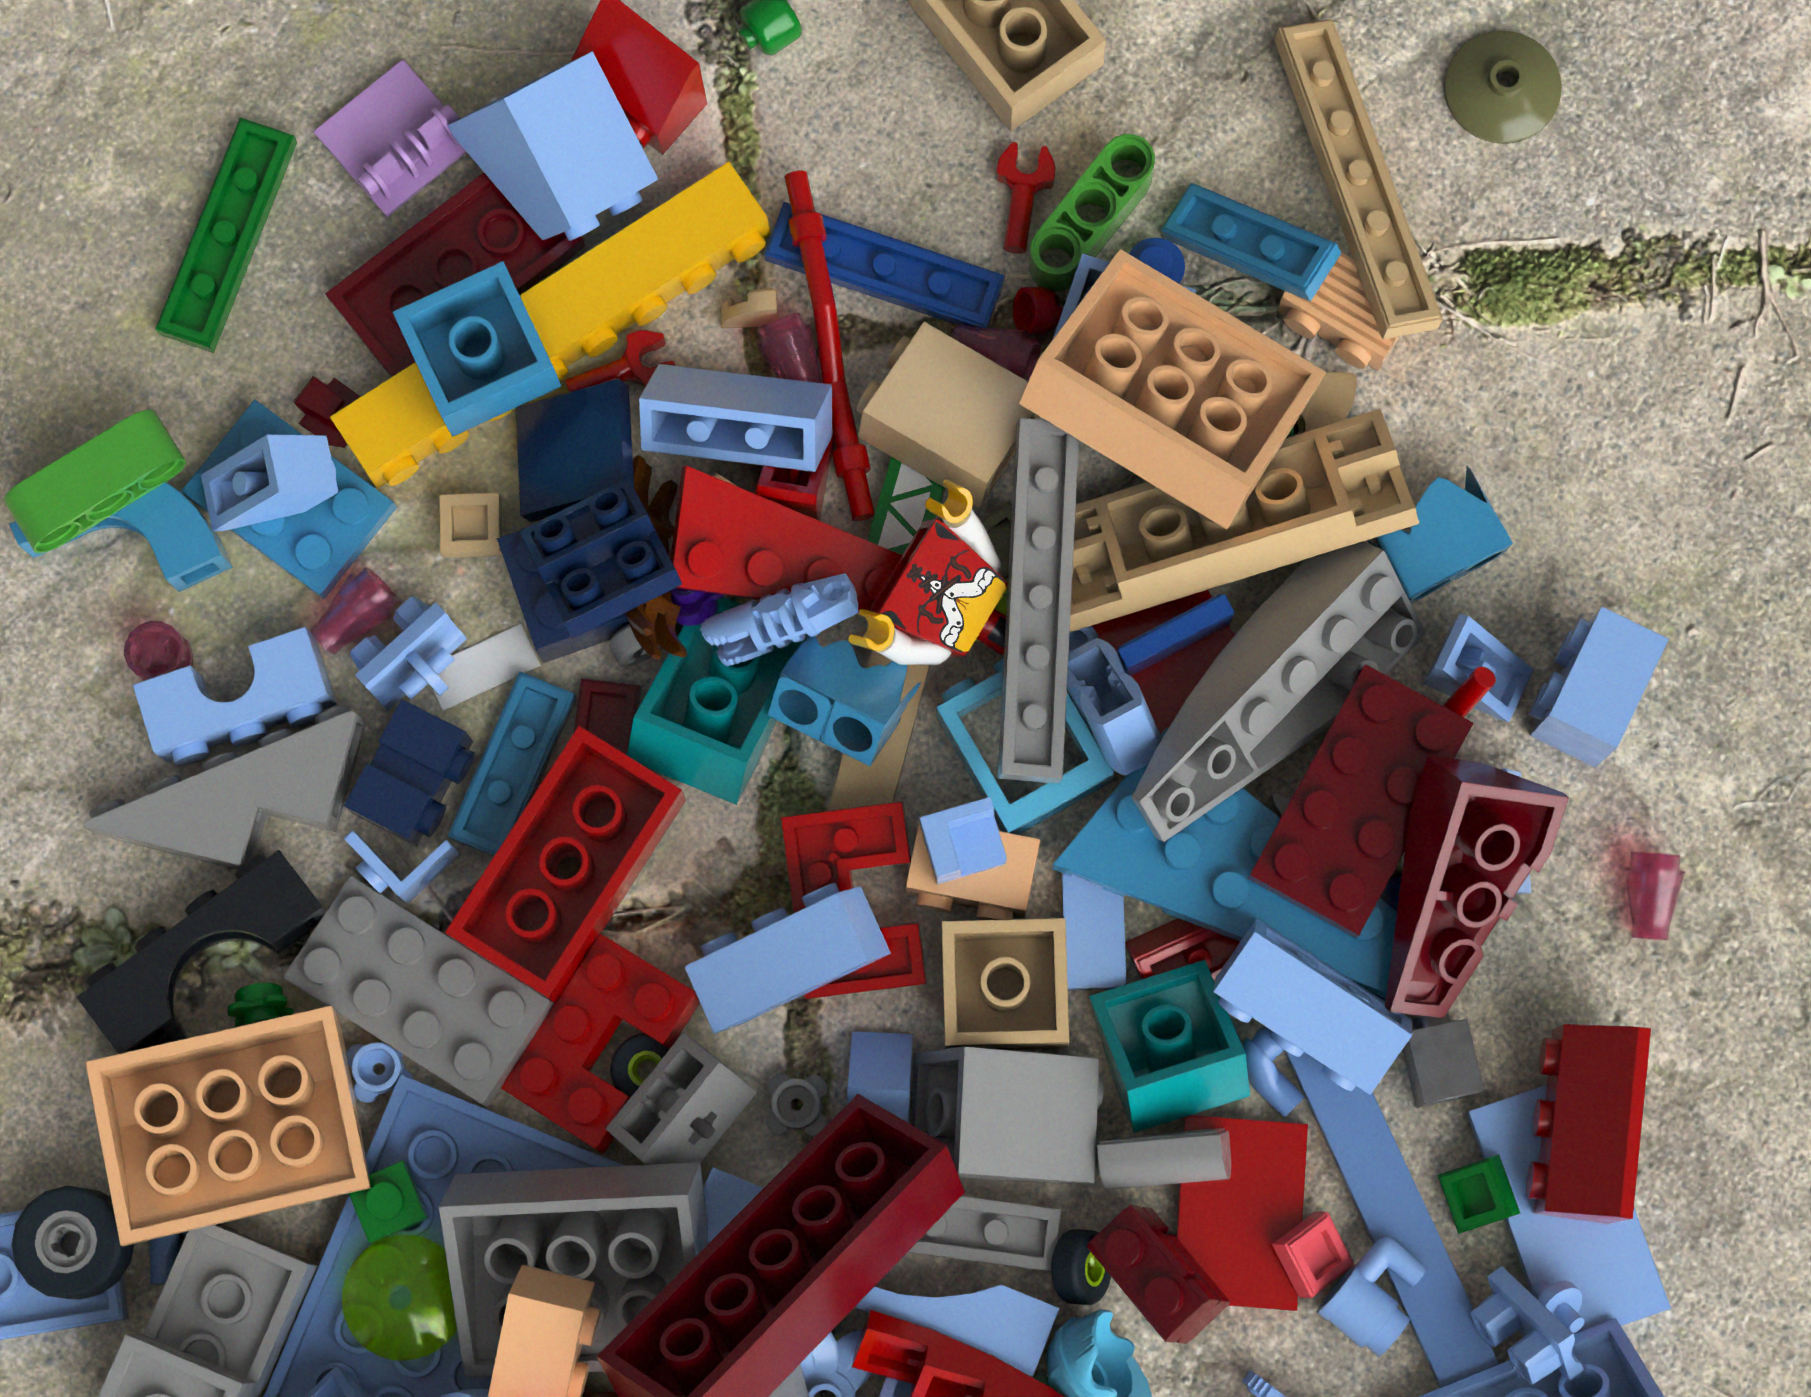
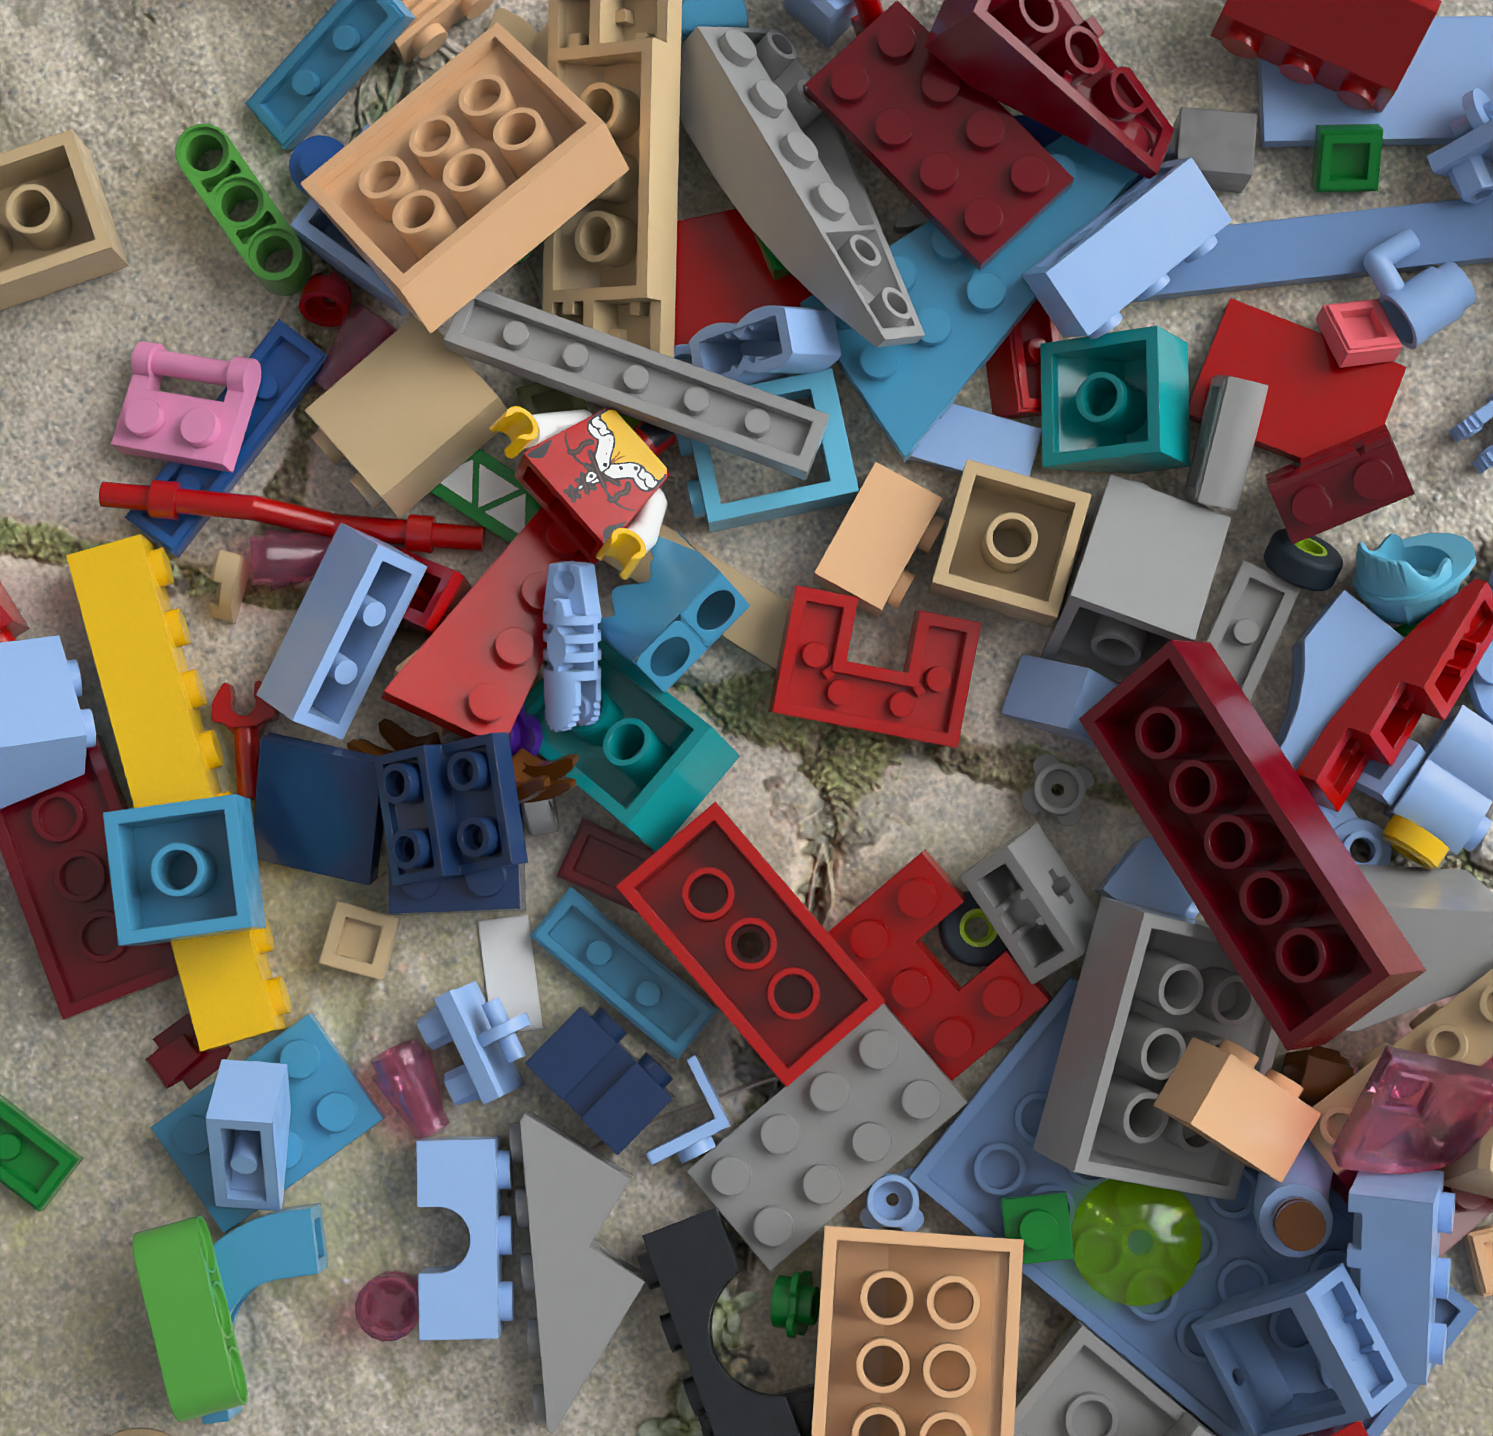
camera: 75 degrees left, 5 degrees up
(786, 956) = (916, 749): light blue brick -> none
(879, 222) = (183, 426): none -> bright pink plate
(963, 840) = (857, 537): light blue panel -> none
(1023, 190) = (195, 274): red bar -> none
(1175, 634) = (709, 260): blue tile -> none
(1265, 1076) = (1178, 320): medium blue arm -> none

